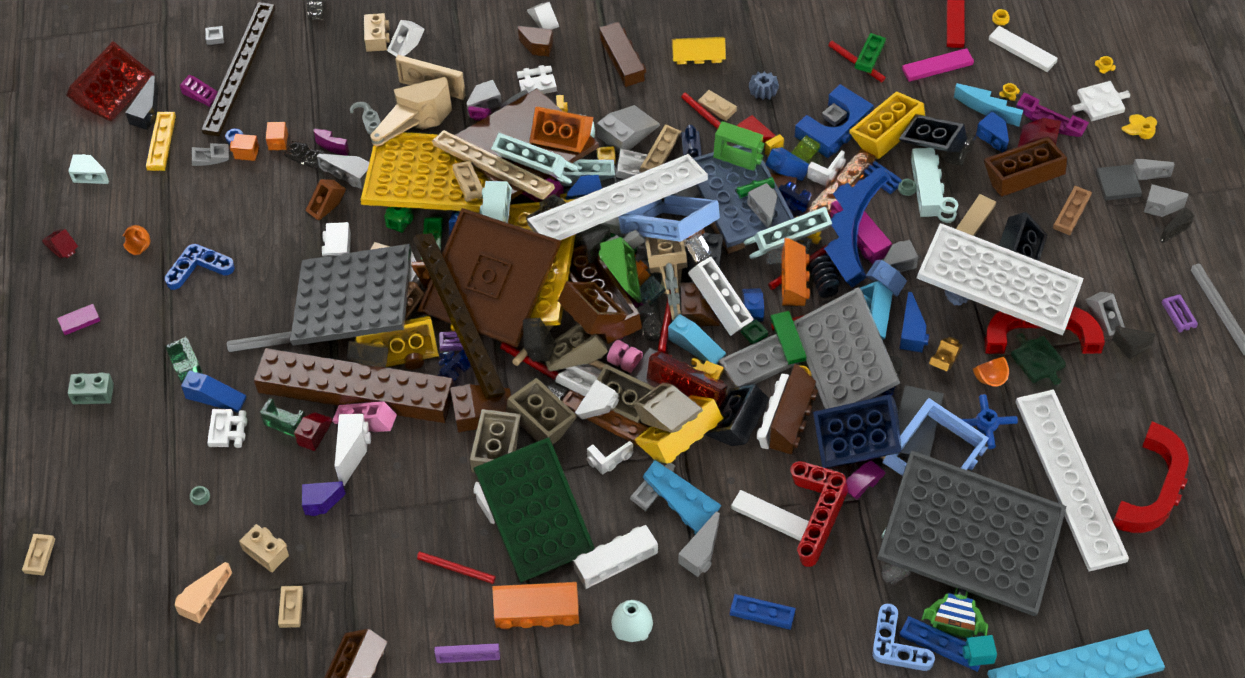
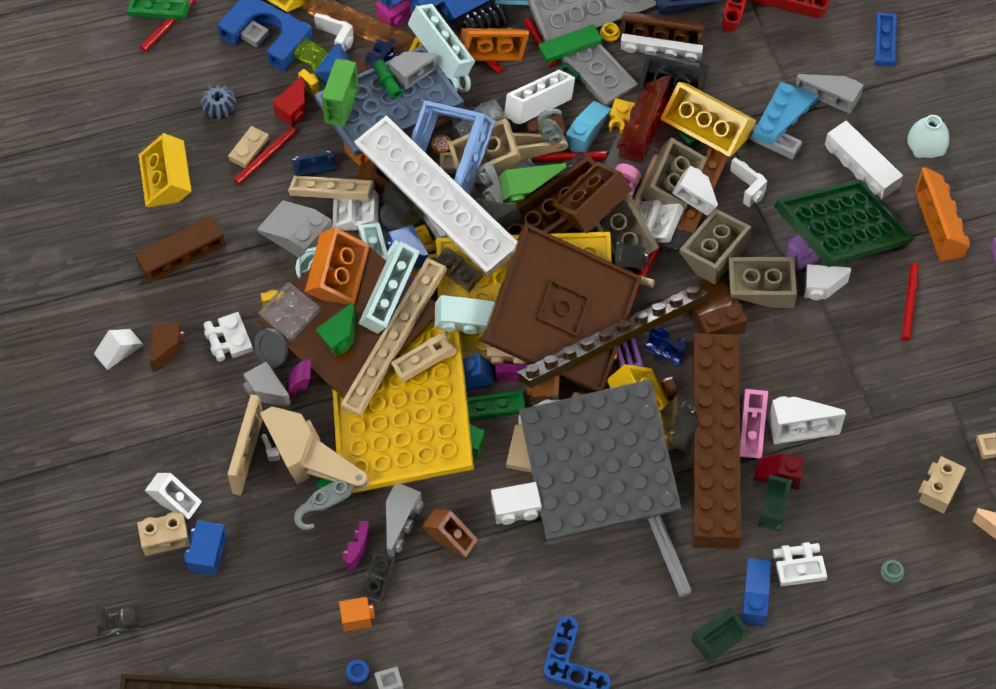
camera: 100 degrees left, 5 degrees up
(244, 147) = (379, 649): orange brick -> none
(321, 497) = (866, 442): dark purple slope -> none
(357, 55) = (206, 548): none -> blue brick
(503, 124) = (339, 330): none -> green slope
(532, 97) = (289, 311): none -> clear plate
(666, 408) = (701, 118): slope -> none
(754, 302) = (525, 74): blue slope -> none
(769, 515) = (780, 42): white tile -> none

